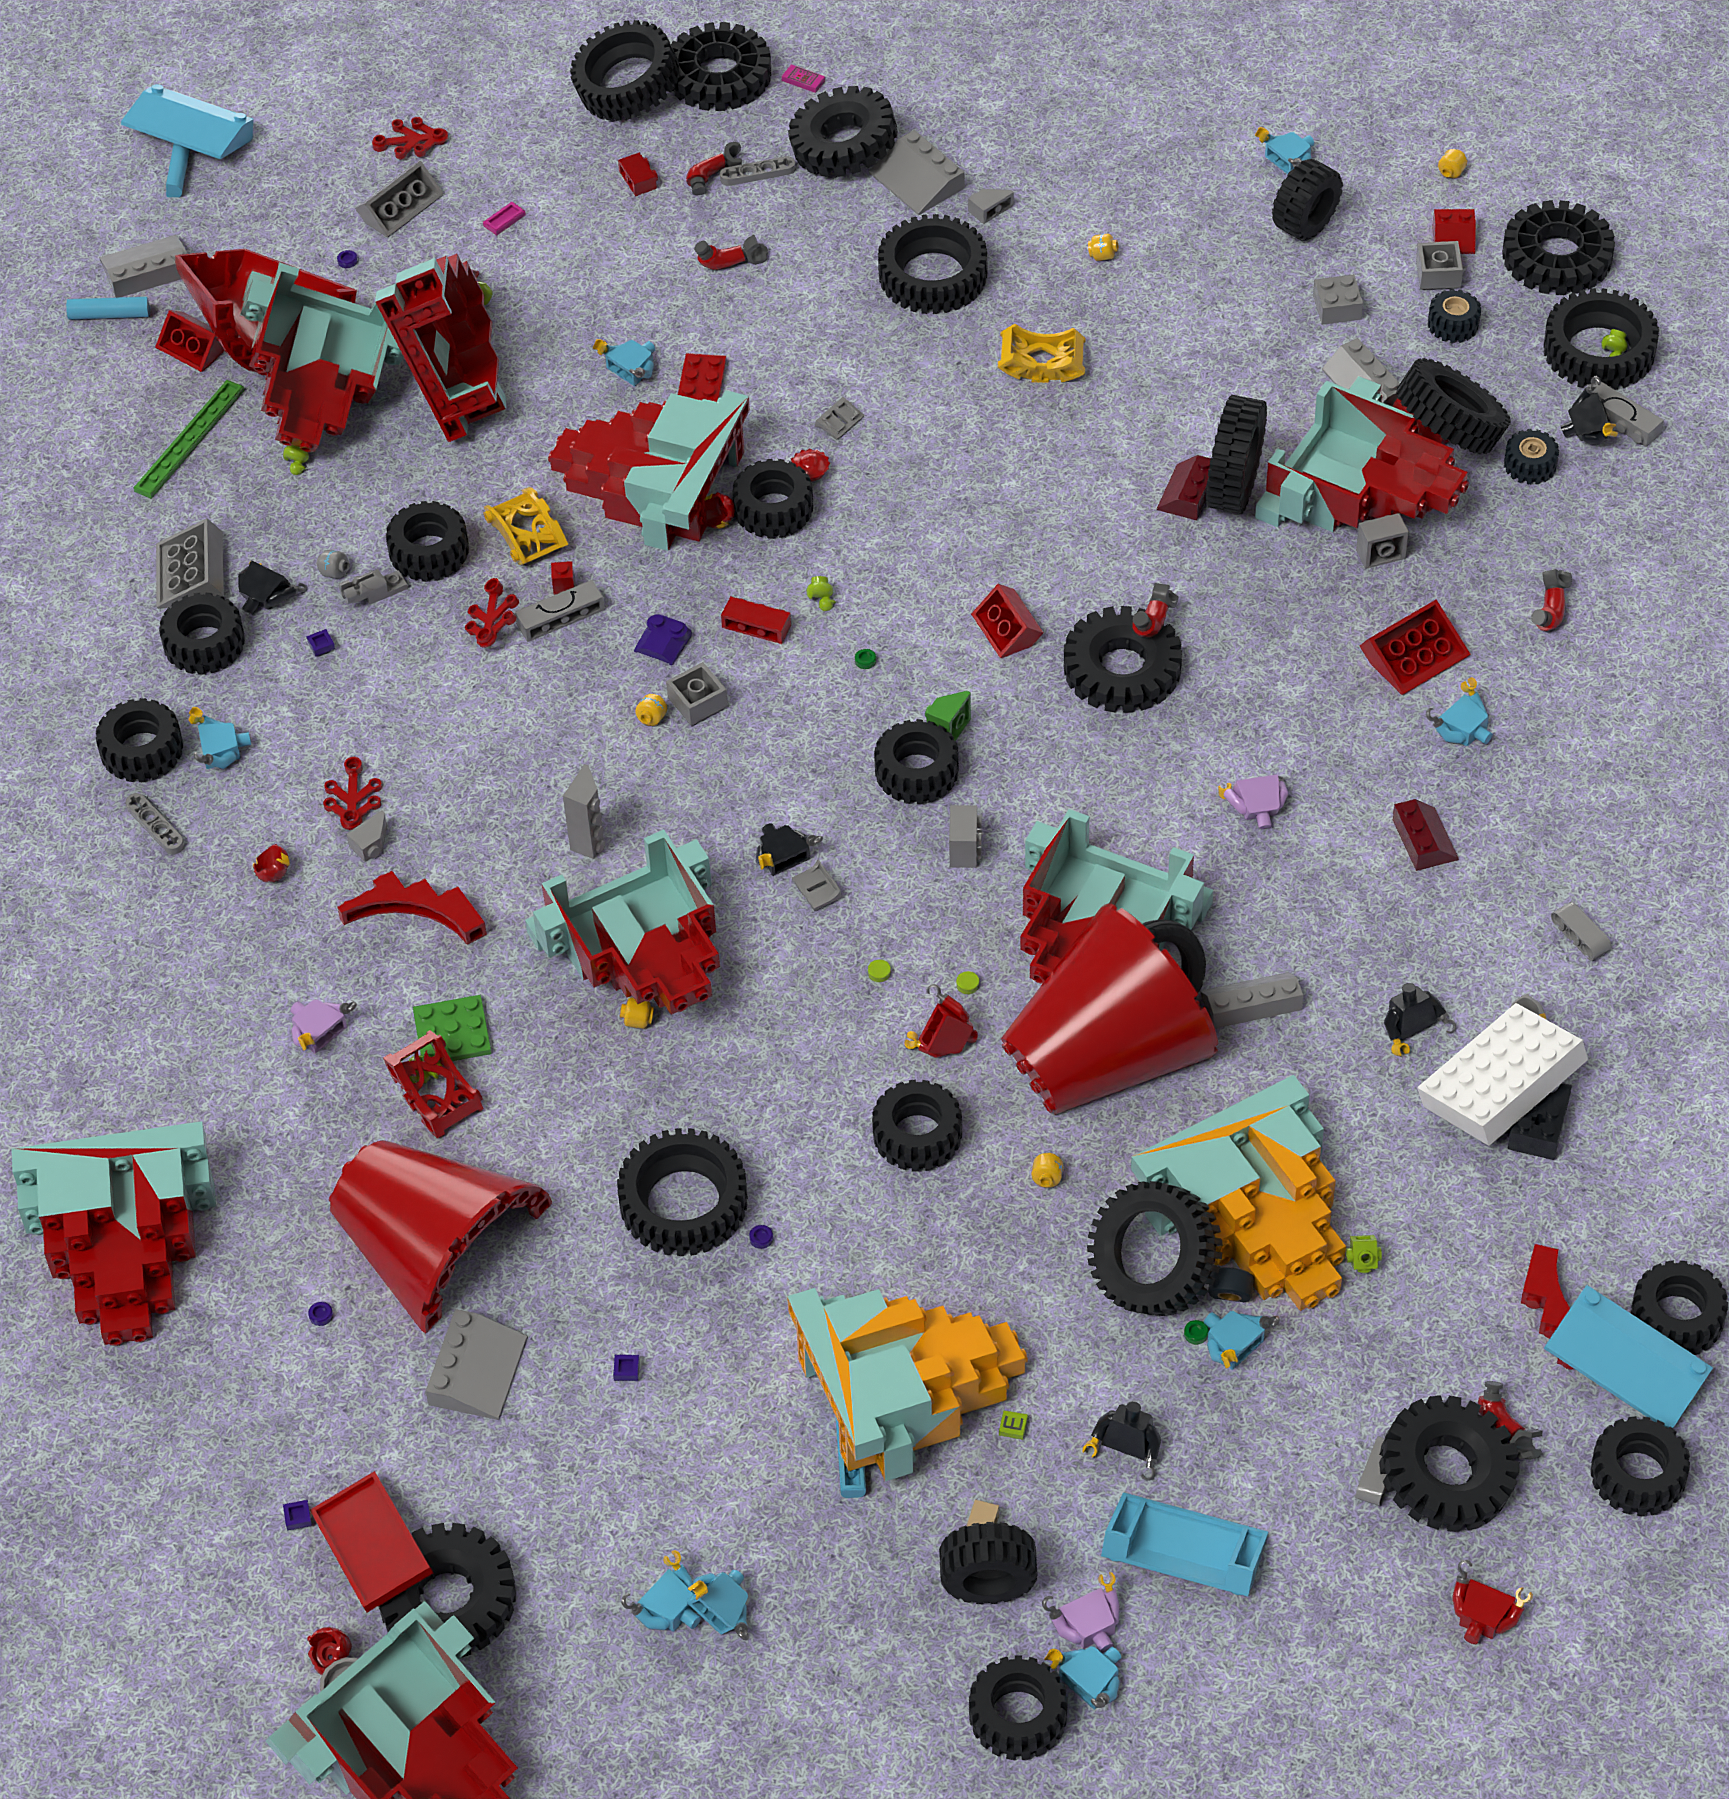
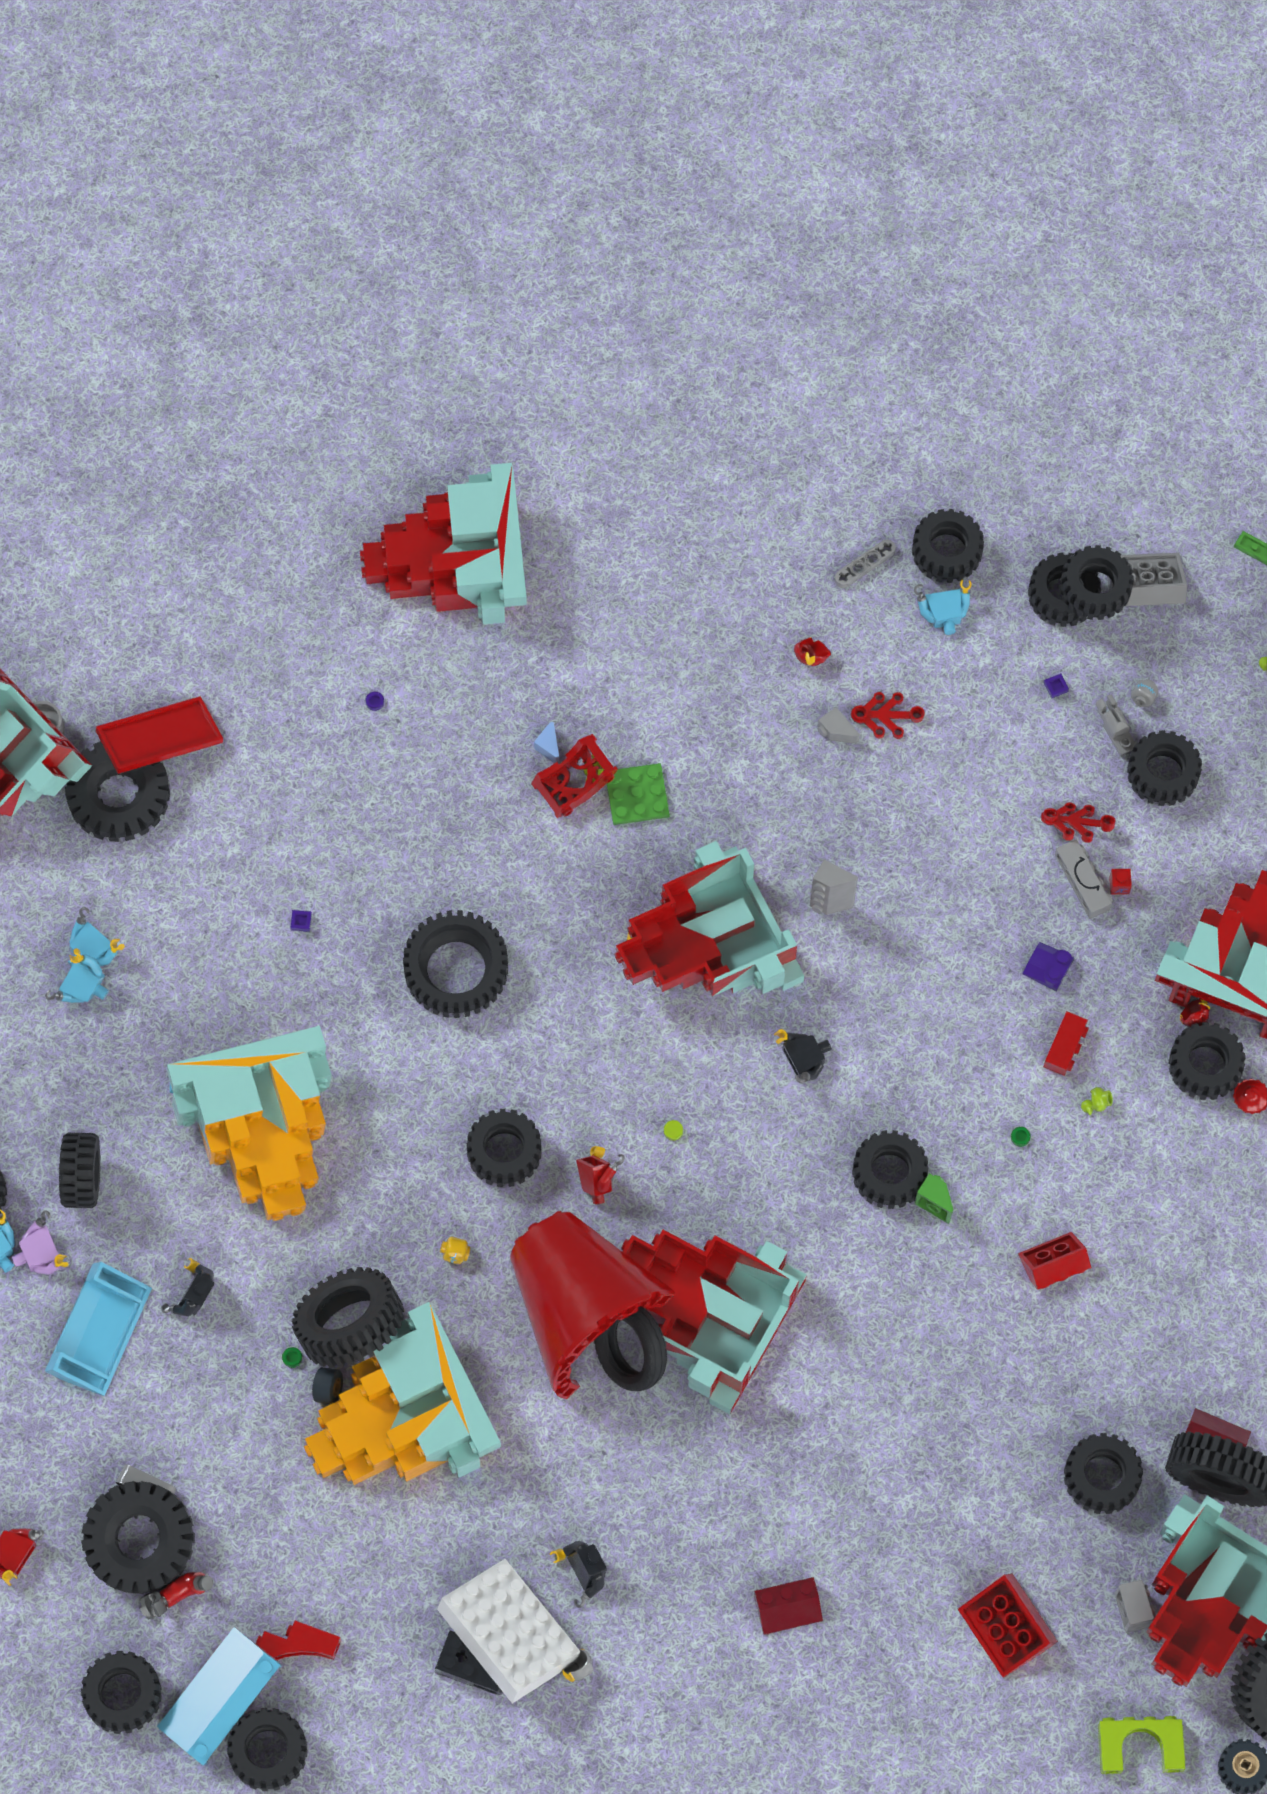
camera: 90 degrees right, 15 degrees up
(207, 603) = (1101, 561): none -> black tyre
(264, 587) = (1118, 636): black torso -> none
(297, 1515) = (196, 687): dark purple plate -> none
(318, 1023) = (645, 689): lavender torso -> none
(328, 1642) = (78, 711): red hair -> none
(385, 1119) = (547, 743): none -> light blue slope
(419, 899) = (757, 790): red arch -> none
(419, 1215) = (452, 774): red cone -> none
(475, 1365) = (313, 811): light grey slope -> none
(507, 510) = (1211, 847): yellow fence -> none
(652, 708) = (965, 952): yellow head -> none
(697, 693) = (978, 989): light grey brick -> none
(761, 1236) = (415, 1026): dark purple tile -> none
(813, 878) = (773, 1079): light grey piece -> none
(964, 836) = (802, 1203): light grey brick -> none
(967, 982) = (655, 1201): lime tile -> none
(983, 1512) = (133, 1177): tan brick -> none
(1013, 1424) = (221, 1208): lime tile -> none
(1111, 632) = (1004, 1324): black tyre -> none
(1151, 621) = (1033, 1380): piece -> none
(1235, 1336) = (278, 1384): medium azure torso -> none
(1236, 590) = (1095, 1498): none -> black tyre
(1253, 999) = (620, 1434): light grey slope -> none
(1257, 797) = (835, 1461): lavender torso -> none
(1363, 1245) = (348, 1496): lime brick -> none
(1464, 719) = (917, 1657): medium azure torso -> none
(1516, 559) = (1166, 1732): none -> lime arch
(1554, 600) = (1047, 1760): piece -> none
(1581, 930) = (670, 1729): light grey beam -> none

